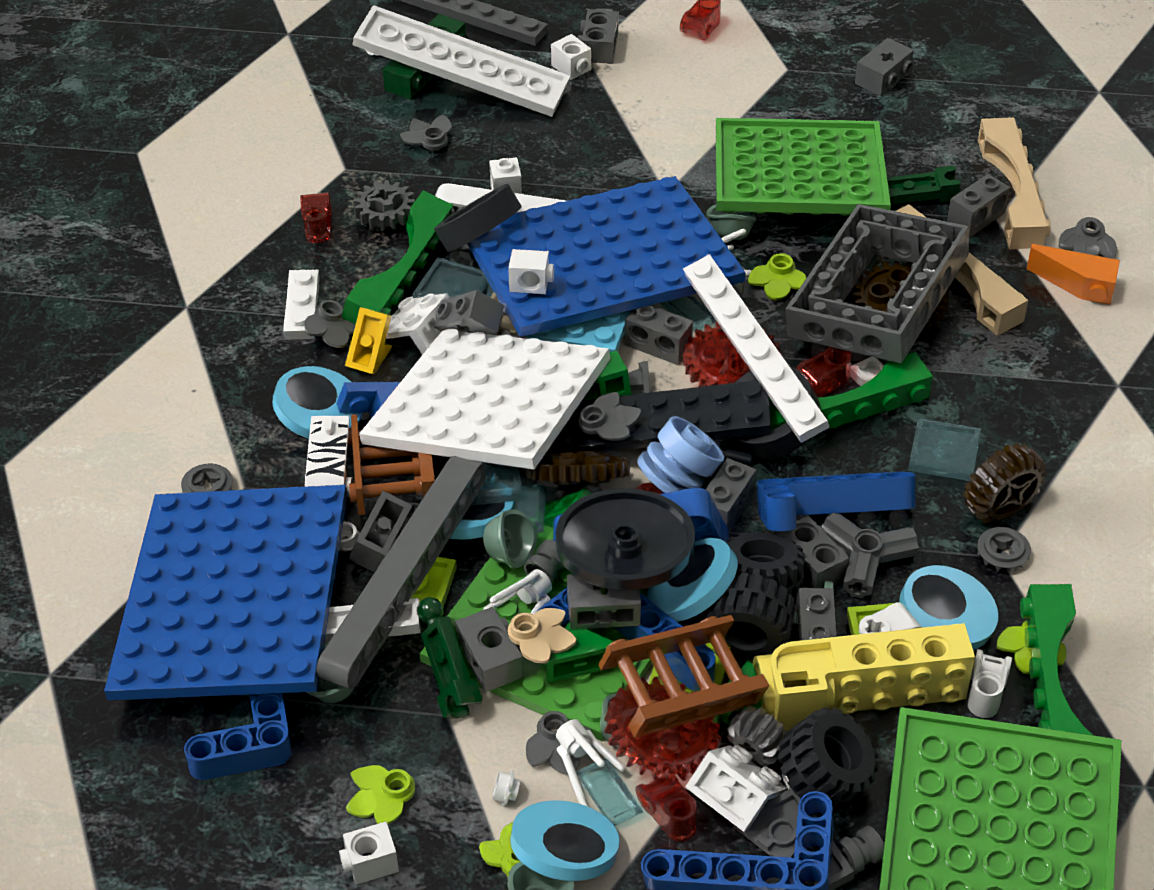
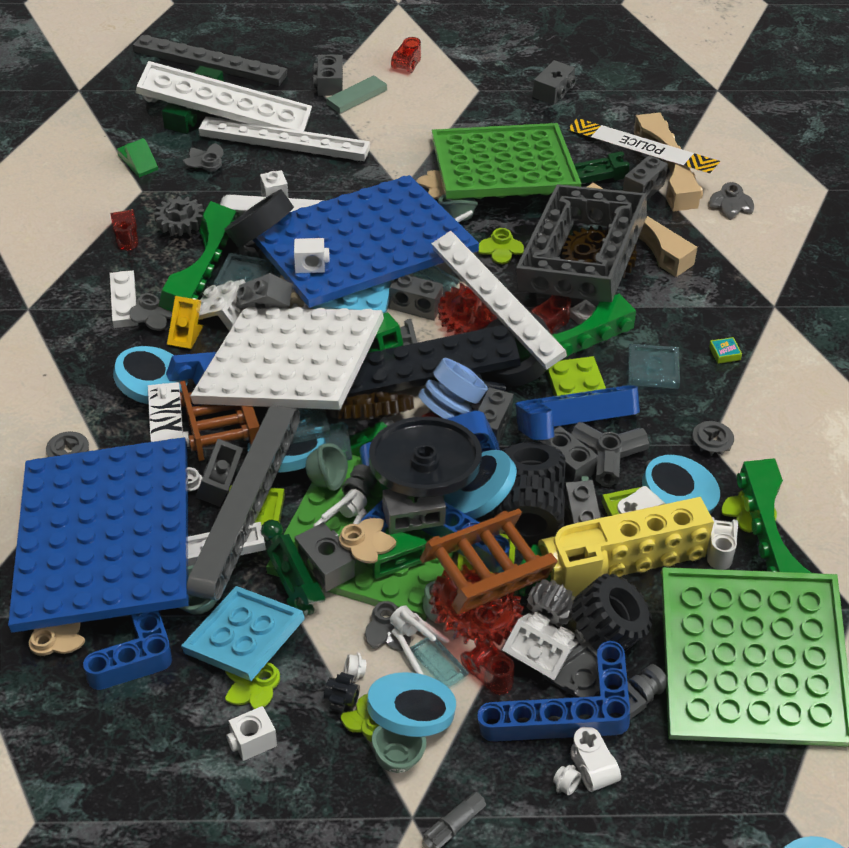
camera: 10 degrees left, 0 degrees up
(162, 714) = (59, 639): none -> tan plate
(346, 126) = (138, 157): none -> green slope
(378, 731) = (243, 632): none -> medium azure plate
(484, 815) = (341, 692): none -> black gear
(531, 116) = (285, 138): none -> white plate
(571, 56) = (310, 91): white brick -> none
(608, 418) = (390, 365): dark grey plate -> none
(630, 64) = (356, 94): none -> sand green tile
(705, 187) = (433, 183): none -> tan plate
(841, 453) = (575, 376): none -> lime plate
(985, 160) = (644, 145): none -> sticker
(1005, 483) = (707, 386): dark brown gear -> none
(1042, 437) = (725, 350): none -> tile
(1075, 272) = (728, 224): orange slope -> none

